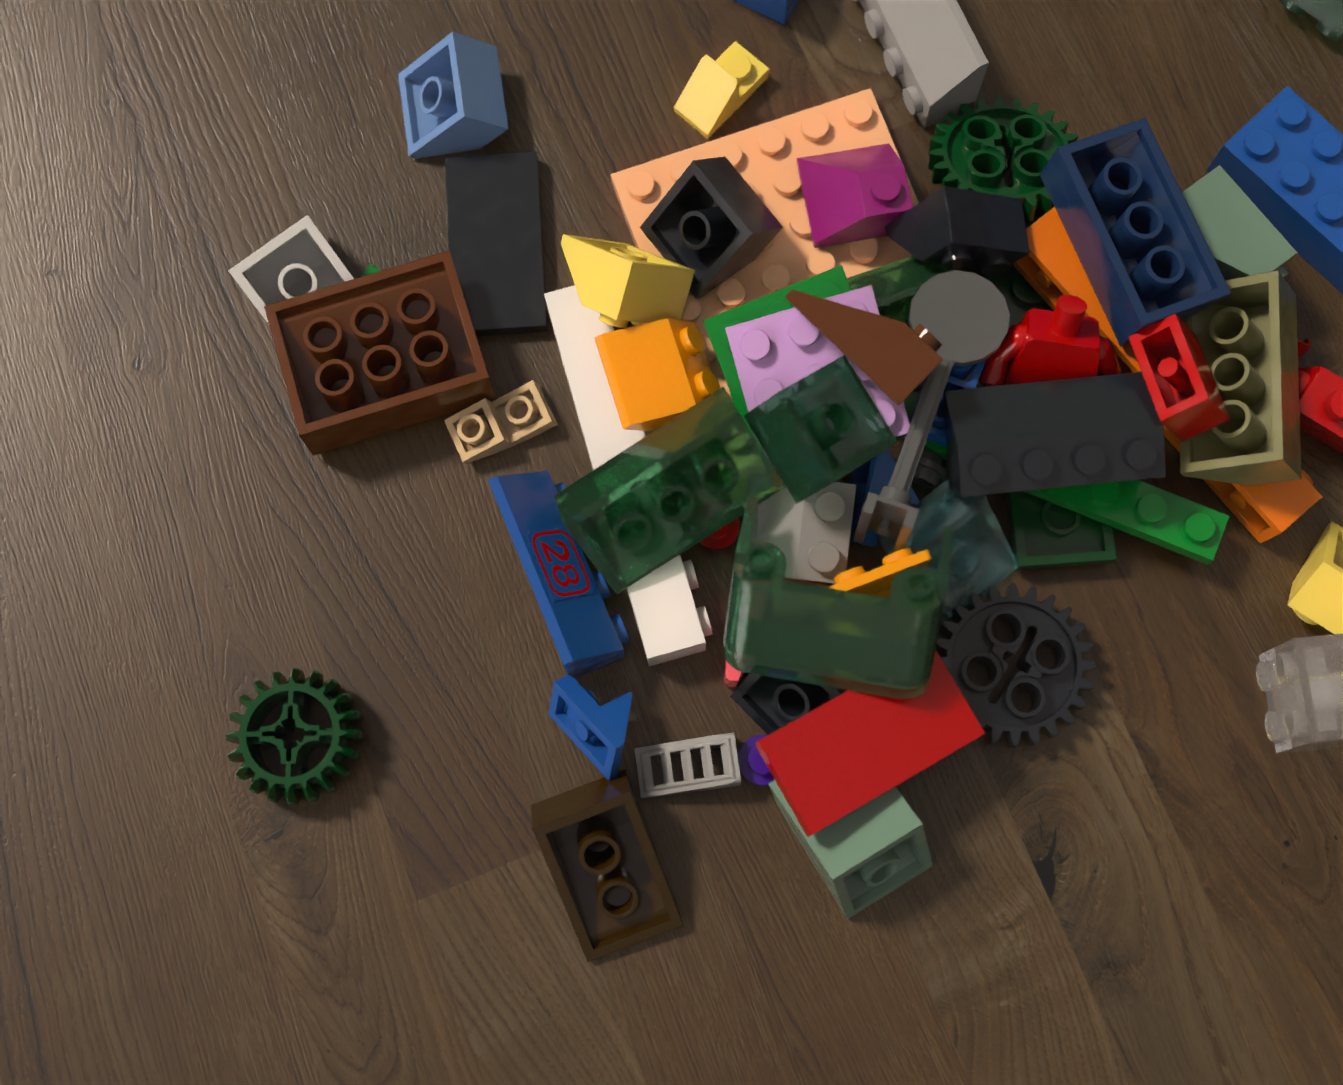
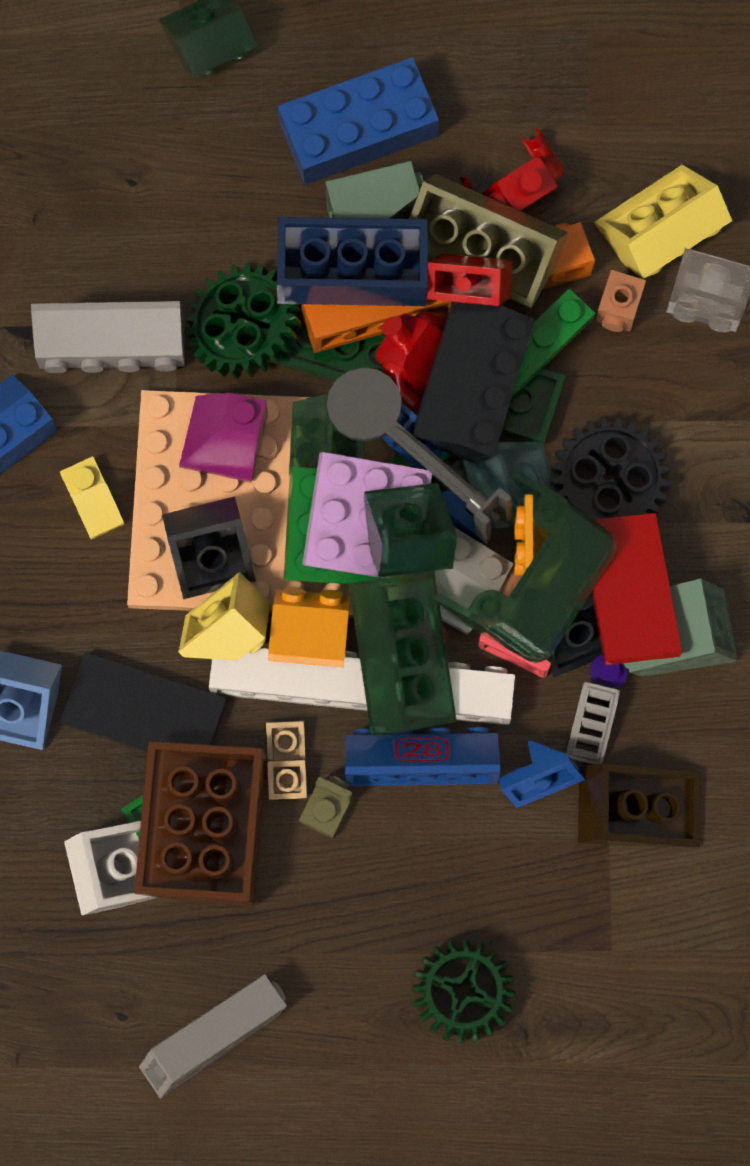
camera: 70 degrees left, 0 degrees up
(137, 464) = (212, 1035): none -> light grey slope
(461, 490) = (327, 806): none -> olive bracket
(878, 345) = (370, 466): reddish brown slope -> none
(964, 230) = (299, 375): black slope -> none
(1244, 589) = (620, 301): none -> nougat brick

